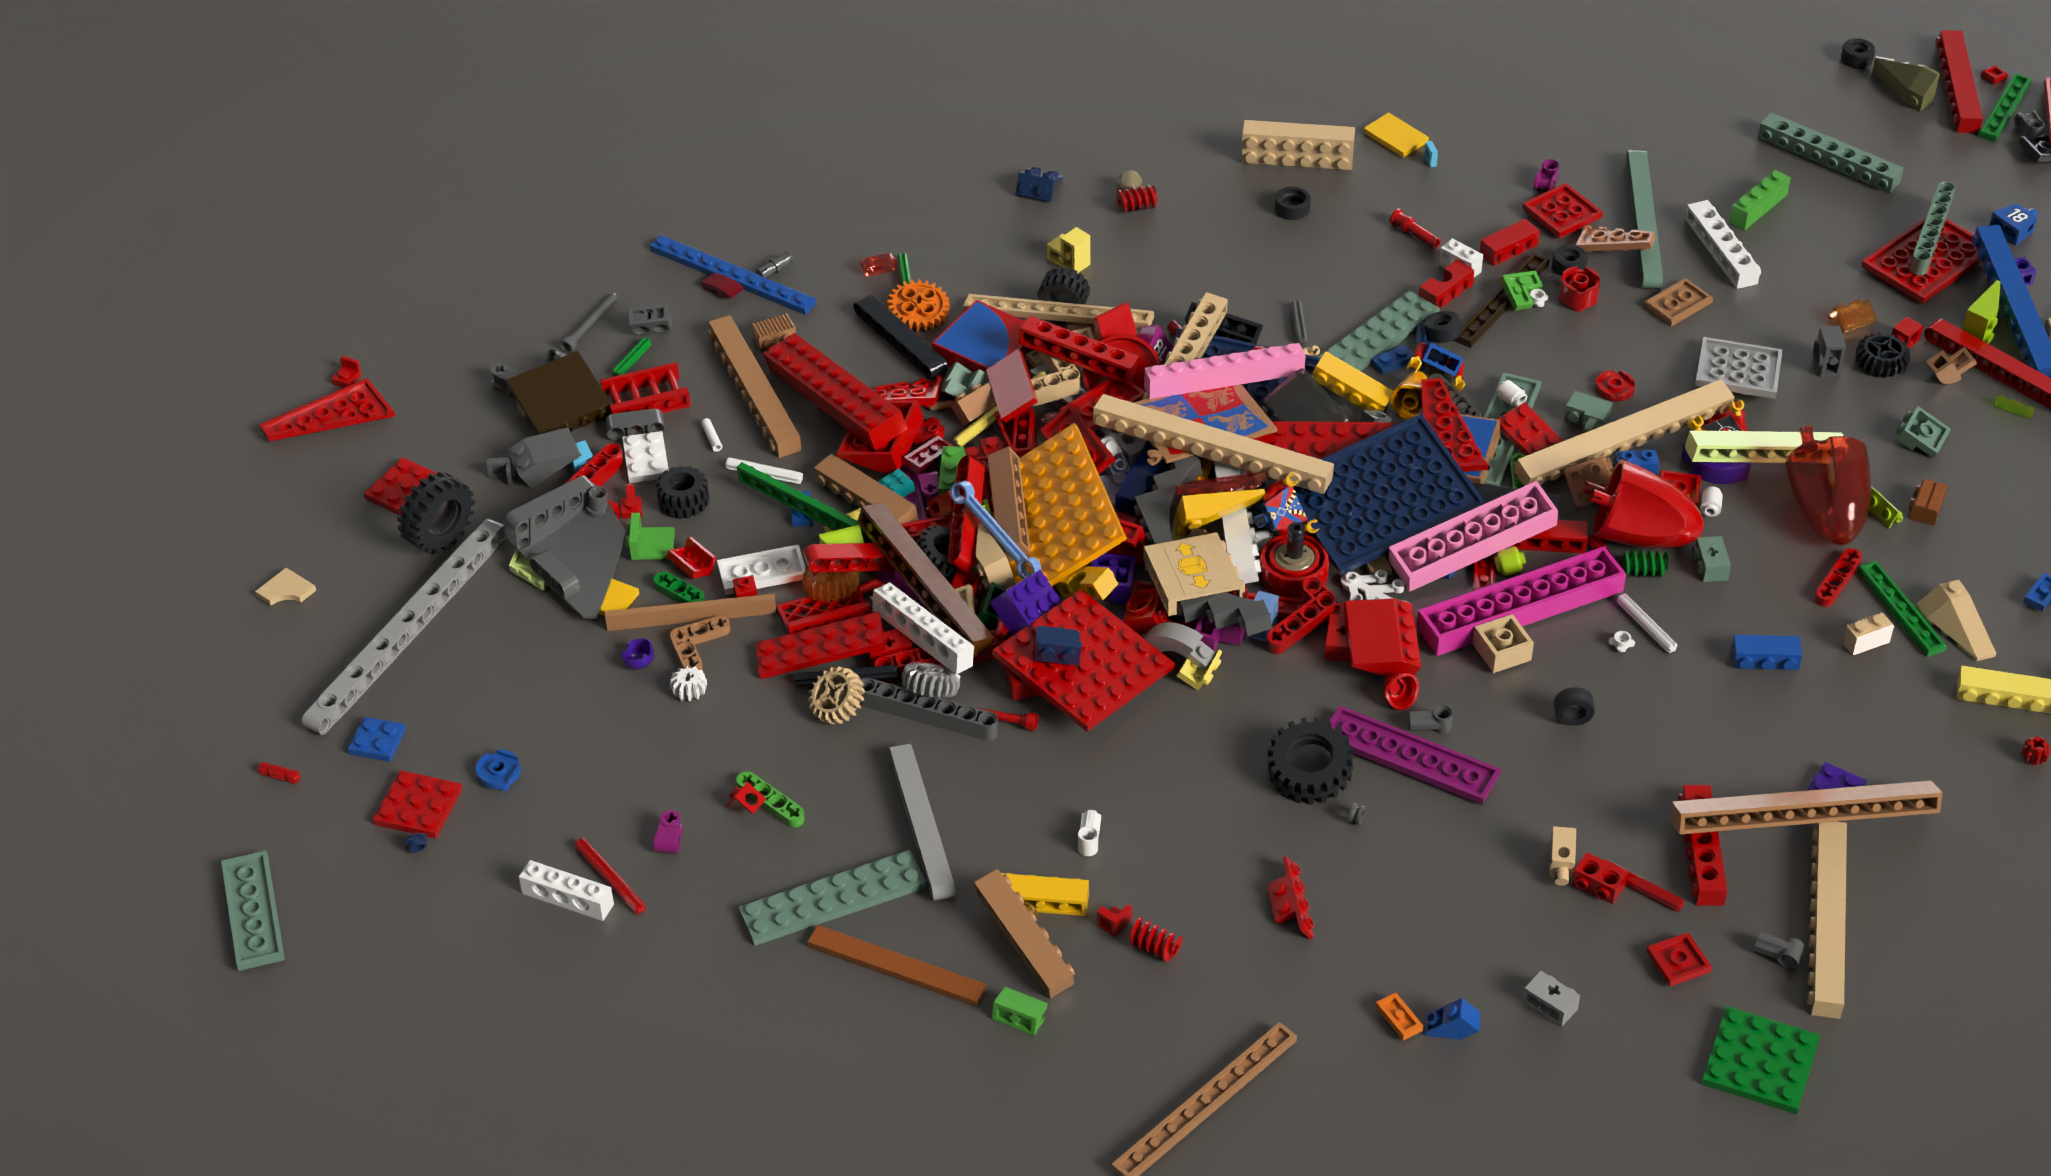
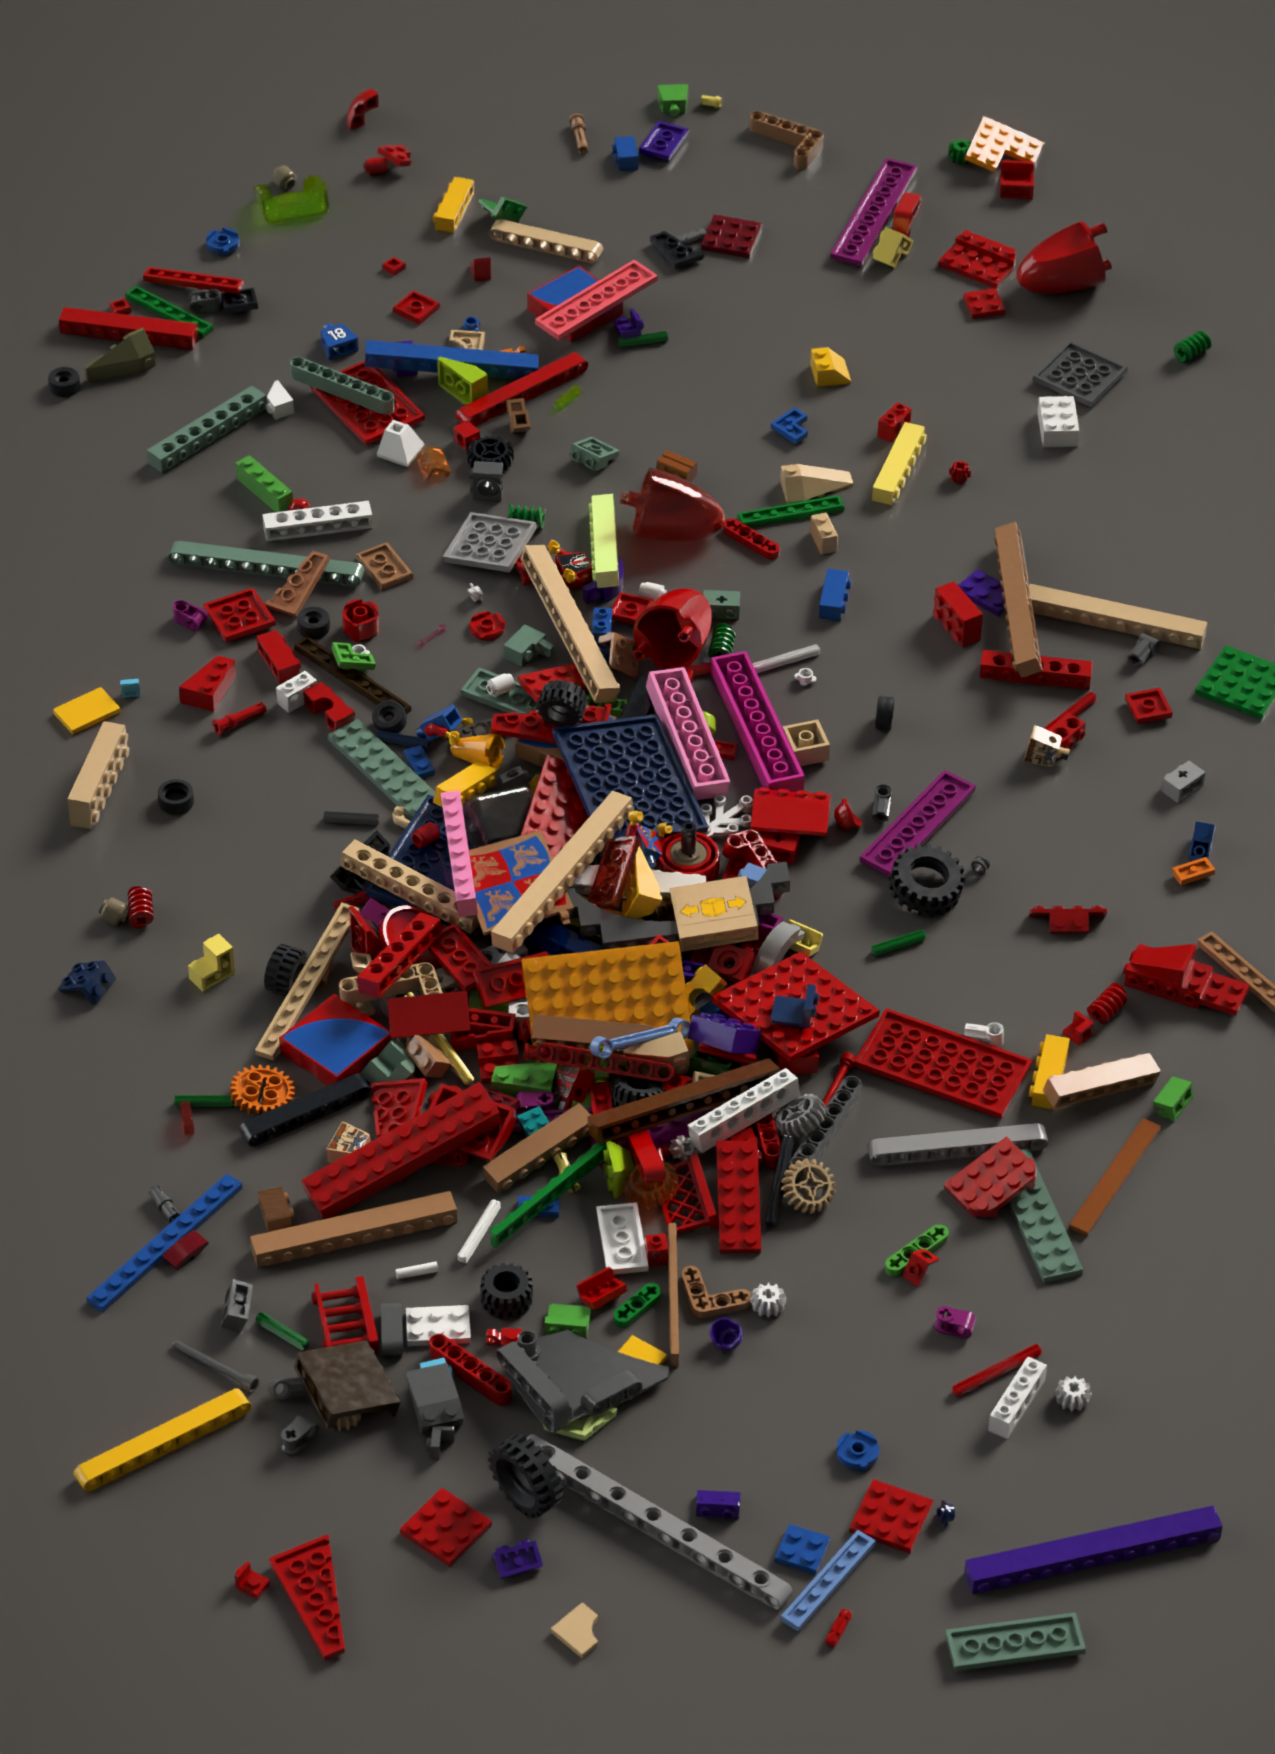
camera: 85 degrees left, 0 degrees up
(335, 758) = (828, 1580): none -> medium blue plate
(365, 535) = (517, 1559): none -> dark purple bracket
(367, 971) = (1093, 1549): none -> dark purple brick
(431, 671) = (718, 1504): none -> dark purple bracket
(502, 301) = (162, 1440): none -> yellow beam
(575, 939) = (1073, 1393): none -> white gear
(861, 365) = (346, 1141): none -> torso
(868, 850) = (993, 1179): none -> red plate
(1040, 802) = (943, 1063): none -> red plate
(1206, 1011) = (1176, 976): none -> red wedge
(1219, 752) = (898, 942): none -> green axle
(1453, 202) = (209, 684): none -> red wedge
(1453, 412) = (562, 703): none -> black tyre
(1600, 354) = (442, 628): none -> clear pink hinge
(1657, 368) = (475, 593): none -> white plate
(1737, 227) = (297, 504): none -> red plate
(1764, 758) = (957, 614): none -> red brick
(1792, 391) = (528, 515): none -> green piece
(1866, 284) = (399, 444): none -> white slope
(1897, 194) = (279, 402): none -> white slope

